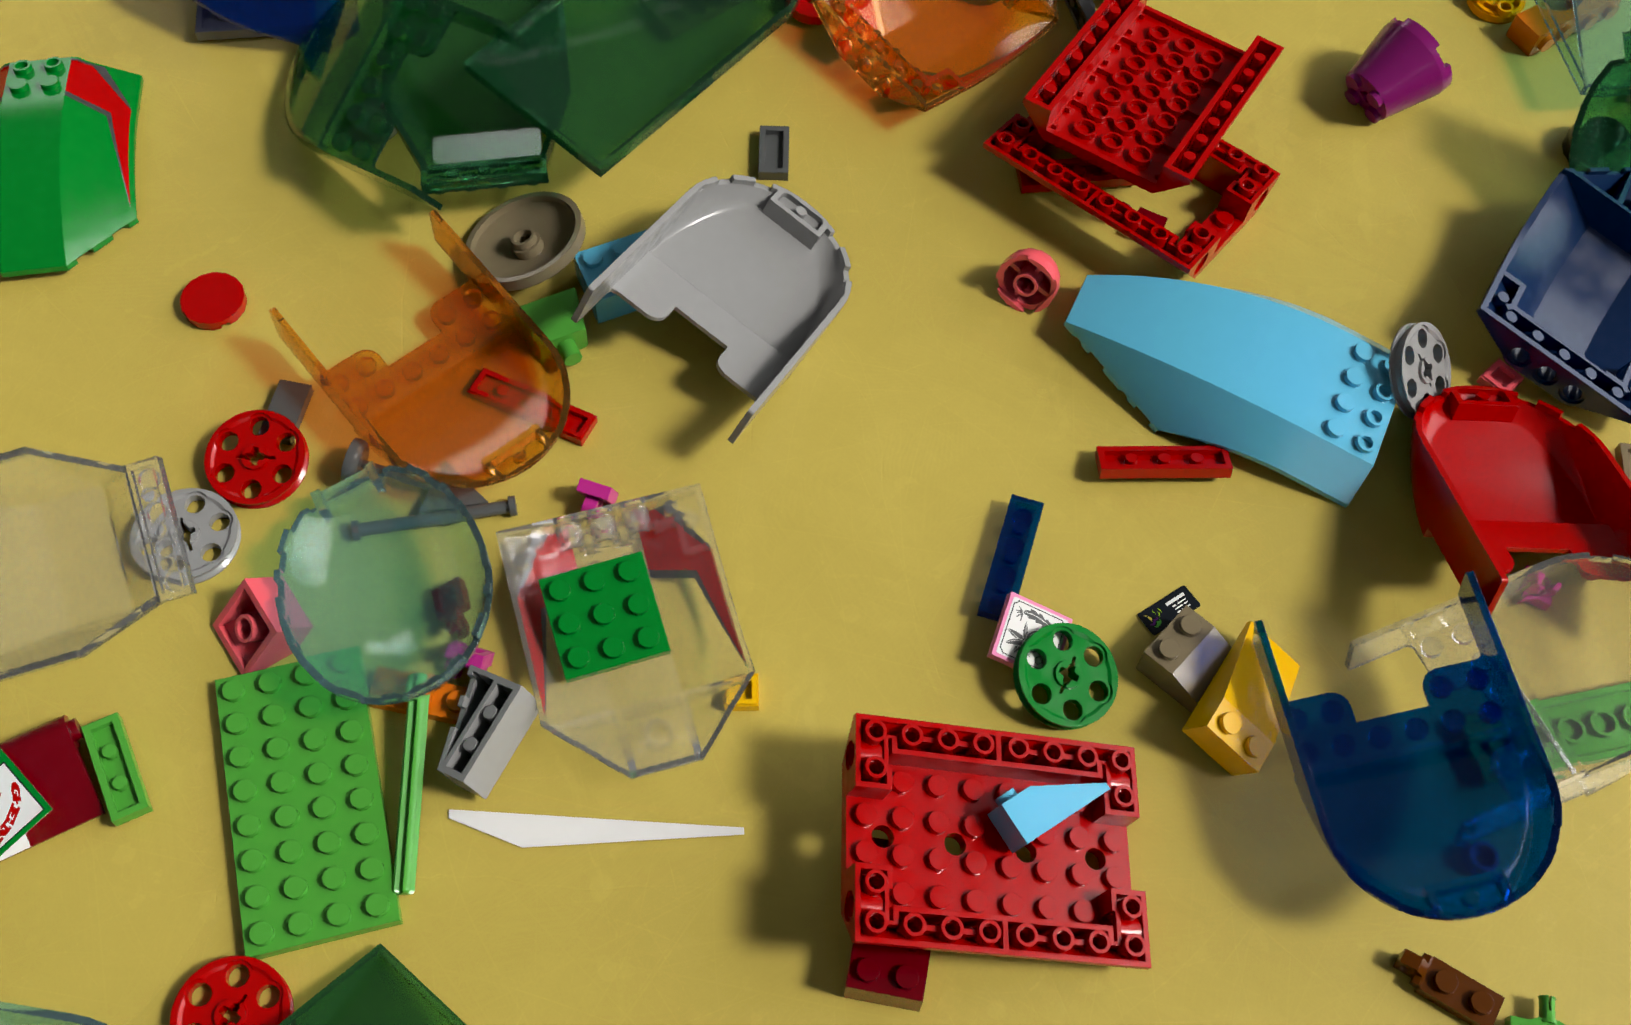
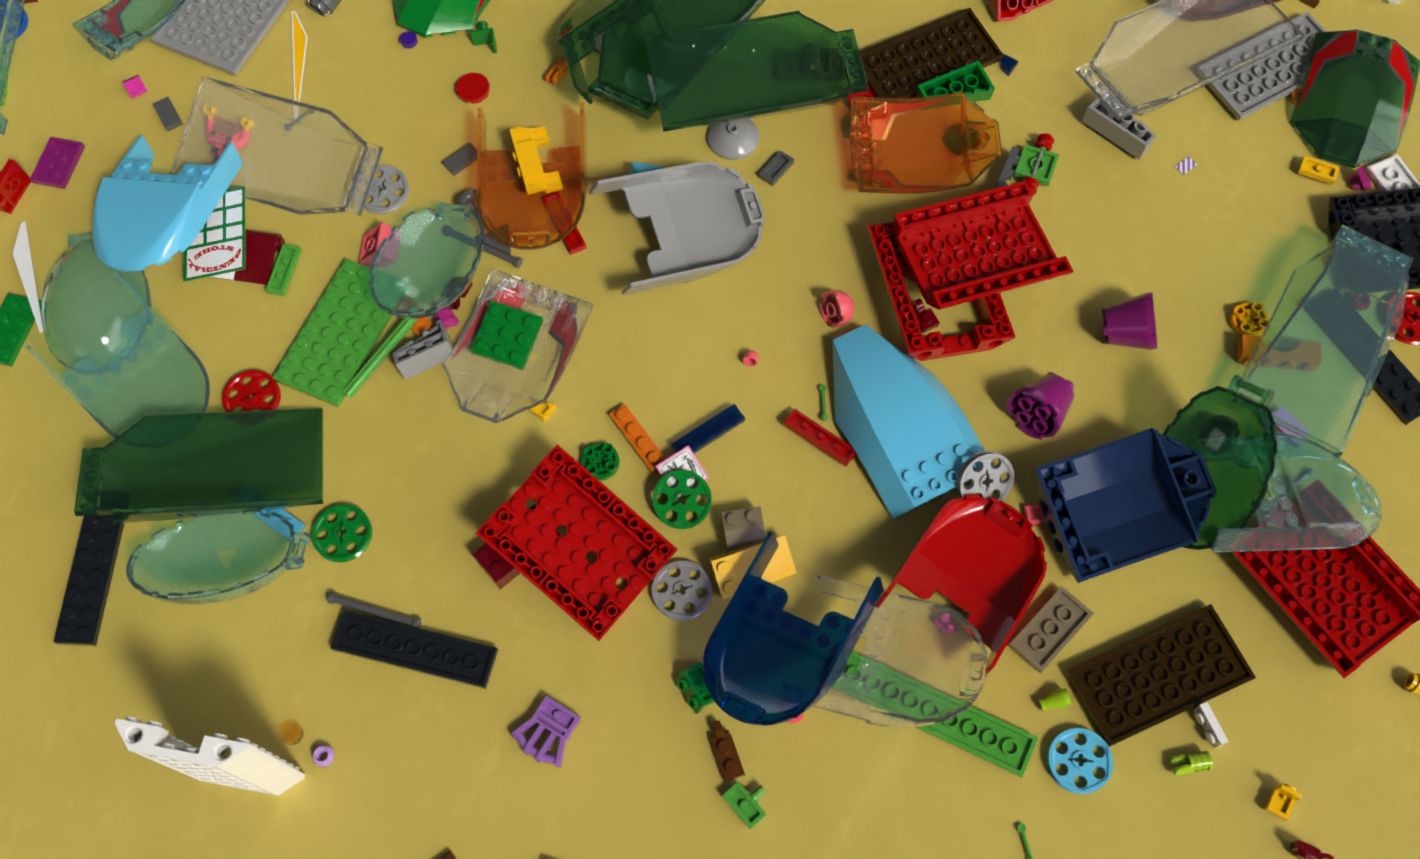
camera: 45 degrees right, 5 degrees up
(40, 290) = (408, 39): none -> dark purple tile
(170, 215) = (484, 35): none -> green bracket
(247, 448) = (435, 166): red wedge -> none
(335, 197) = (557, 71): none -> orange hinge
(414, 345) = (526, 153): none -> yellow bracket
(528, 238) = (620, 141): dark tan dish -> none
(548, 830) = (420, 410): white sticker -> none
(554, 319) = (602, 200): bright green torso -> none
(595, 494) = (554, 281): dark pink tile -> none
(679, 151) = (736, 143): none -> light grey dish
(897, 697) = (601, 460): none -> green tile
(919, 636) = (637, 437): none -> orange plate
(974, 419) = (751, 358): none -> coral hinge
(1039, 808) = (604, 541): medium azure slope -> none
(1101, 400) = (822, 388): none -> bright green hinge
(1161, 613) = (767, 505): black sticker -> none
(1195, 807) = (690, 593): none -> light grey wedge
(1332, 927) = (693, 686): none -> green bracket
(1395, 237) = (1041, 405): none -> magenta cone

